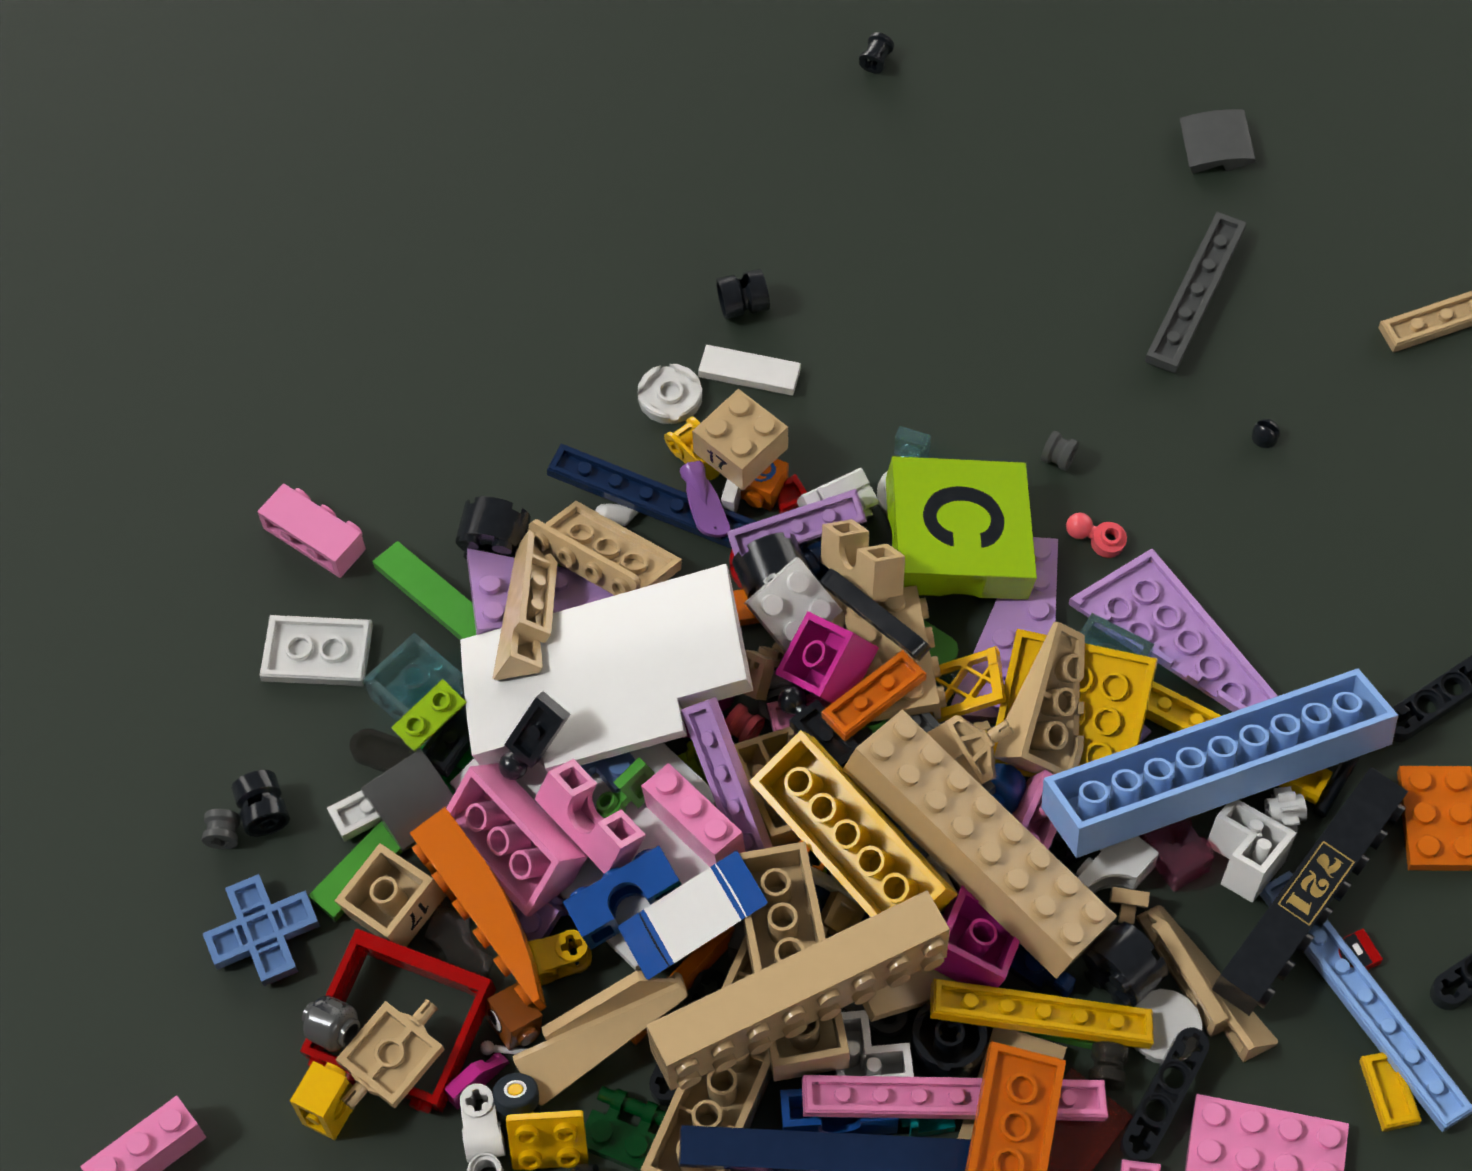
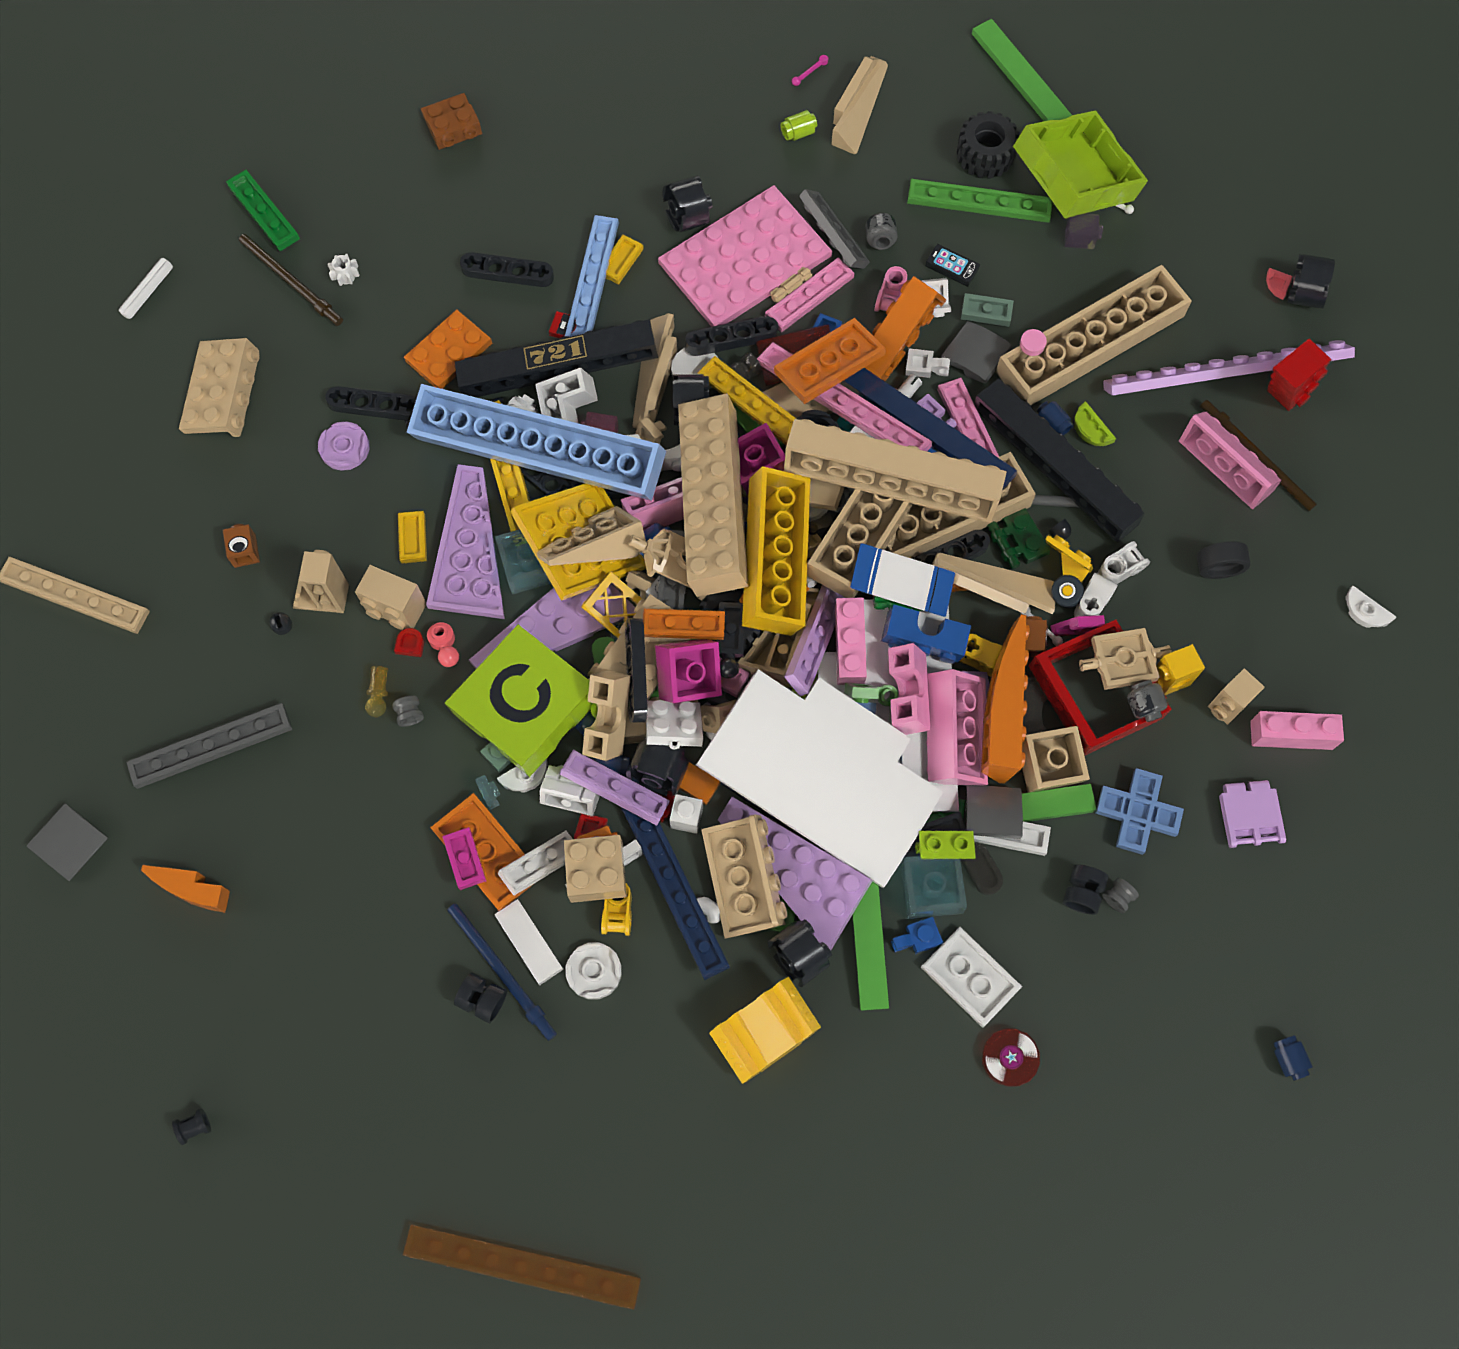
camera: 140 degrees left, 10 degrees up
(137, 1023) = (1251, 813): none -> lavender plate
(224, 611) = (1010, 1057): none -> clear red tile
(236, 1122) = (1235, 696): none -> tan brick
(312, 529) = (910, 1066): bright pink brick -> none
(391, 639) = (921, 935): none -> blue plate
(470, 447) = (765, 1030): none -> yellow slope
(517, 166) = (522, 1267): none -> clear orange tile
(527, 611) = (832, 859): tan wedge -> none
(532, 736) = (906, 753): black plate -> none
(686, 324) = (534, 1013): none -> dark blue bar
(704, 501) = (651, 858): medium lavender piece -> none
(709, 556) = (686, 814): none -> white brick
(803, 422) = (535, 864): none -> white tile
(859, 401) = (492, 842): none -> orange plate
(869, 370) = (464, 858): none -> dark pink plate
(1078, 183) = (189, 887): none -> orange slope
(1095, 435) = (376, 705): none -> clear yellow pin
(1130, 512) = (409, 643): none -> red tile
(1186, 517) = (390, 598): none -> tan brick
(1244, 605) = (412, 537): none -> yellow tile
(1261, 471) = (321, 584): none -> tan wedge
(1384, 460) = (241, 545): none -> dark orange brick
(1415, 633) = (343, 446): none -> lavender tile

